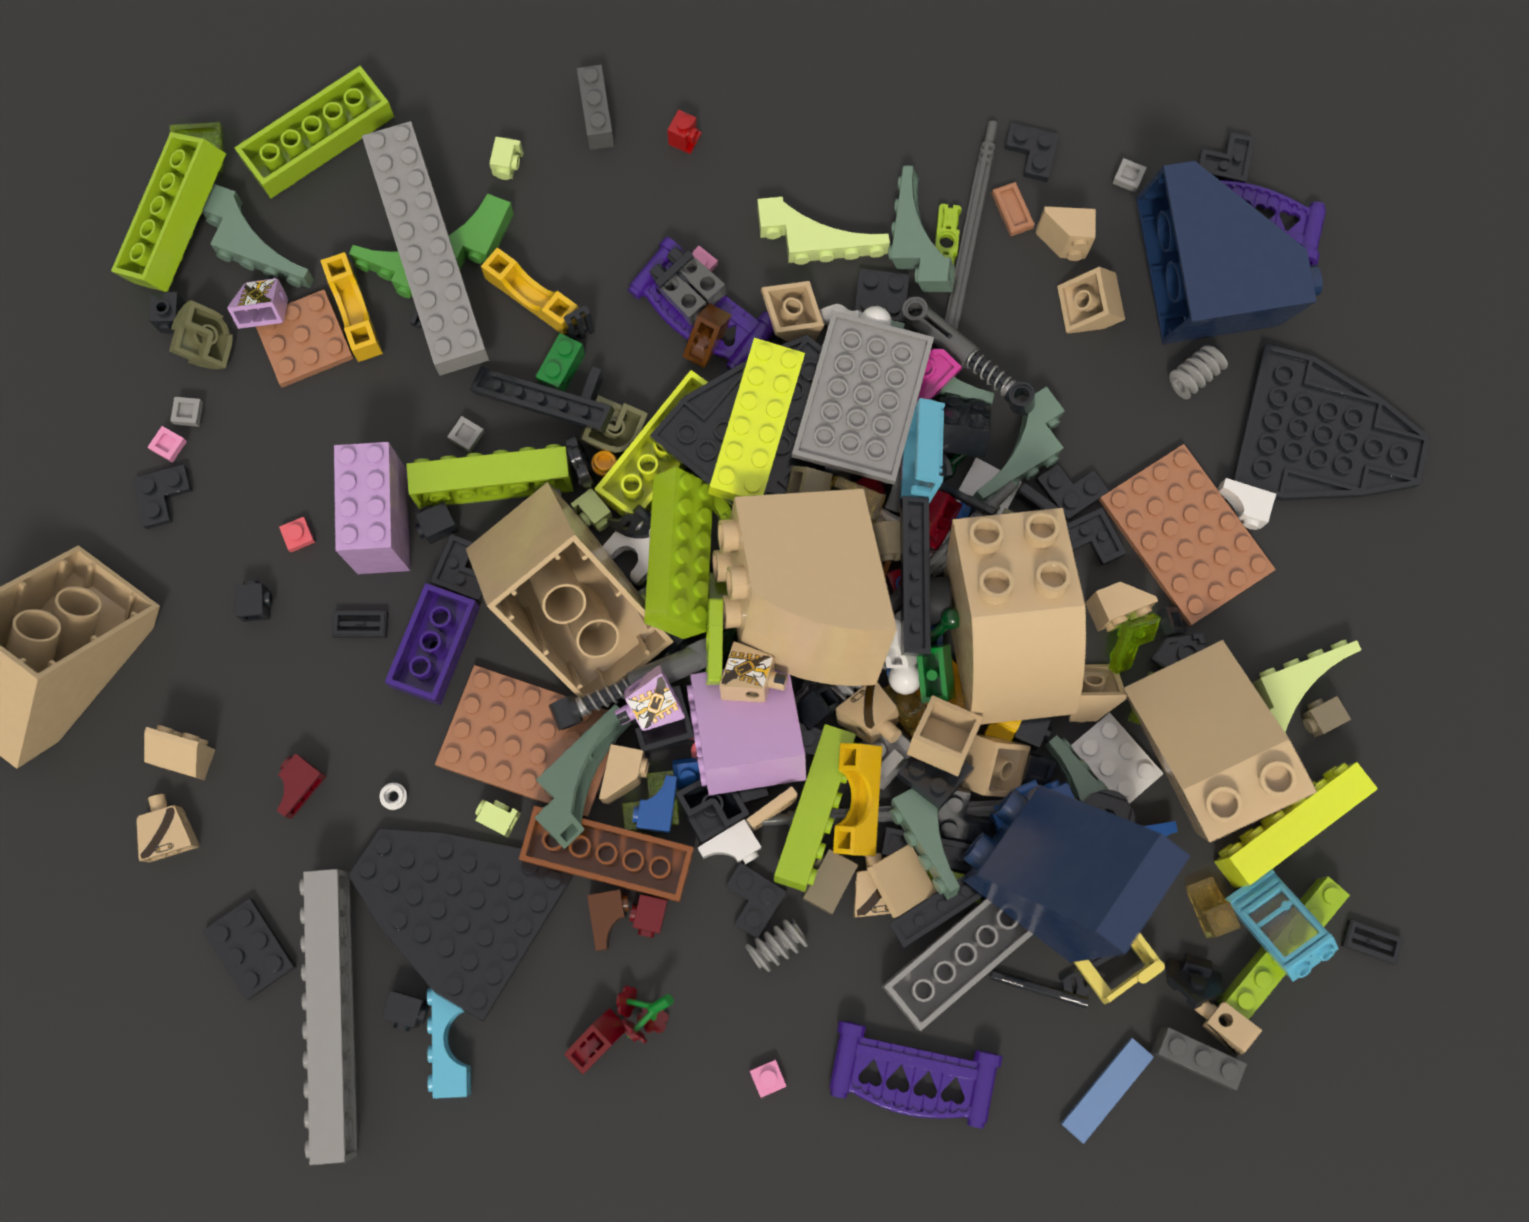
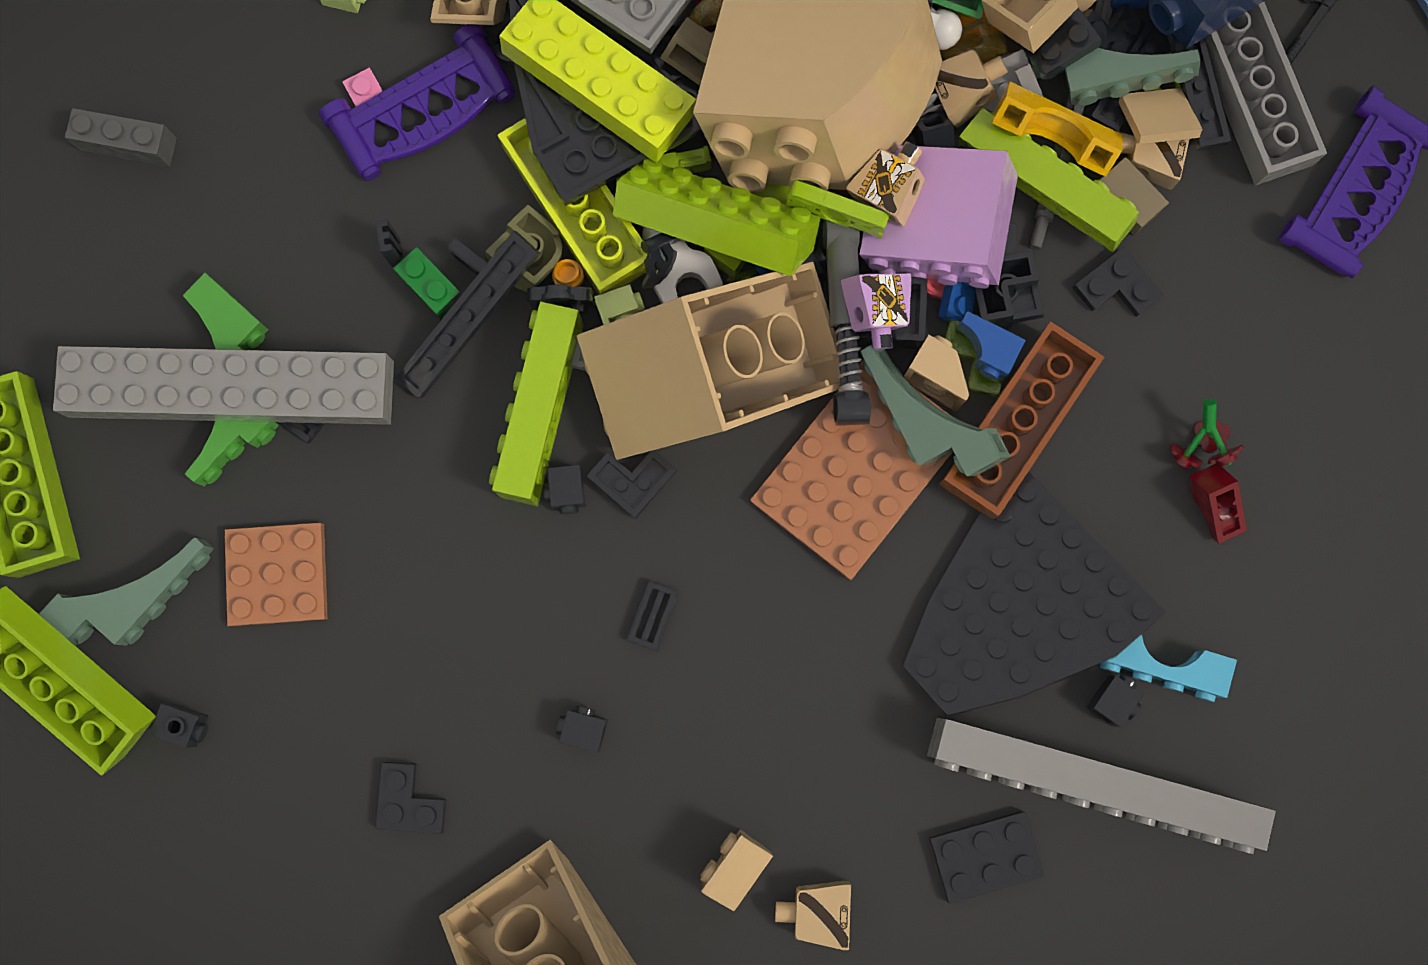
camera: 65 degrees left, 5 degrees up
(167, 444) = (348, 775): bright pink plate -> none
(186, 411) = (316, 739): light grey plate -> none
(201, 336) = (229, 691): olive brick -> none
(259, 303) = (215, 608): lavender torso -> none
(297, 534) = (518, 655): coral plate -> none
(299, 782) = (815, 739): dark red arch -> none
(352, 307) = (242, 502): yellow arch -> none
(371, 508) = (529, 546): lavender brick -> none
(385, 796) = (879, 640): white plate -> none
(436, 618) = (691, 511): dark purple brick -> none
(466, 434) = (470, 421): light grey plate -> none
(497, 817) = (935, 530): yellowish green brick -> none
(505, 157) = (142, 262): yellowish green brick -> none
(515, 282) = (302, 304): yellow arch -> none
(605, 912) = (1081, 446): reddish brown arch -> none
(648, 915) = (1101, 400): dark red brick -> none
(683, 132) = (194, 48): red brick -> none
(687, 284) = (392, 104): dark grey hips -> none
(706, 335) = (459, 105): reddish brown arch -> none
(735, 842) = (1056, 276): white arch -> none
(768, 1078) = (1313, 337): bright pink plate -> none
(771, 809) = (1034, 224): tan tile -> none
(777, 945) = (1178, 276): light grey piece -> none

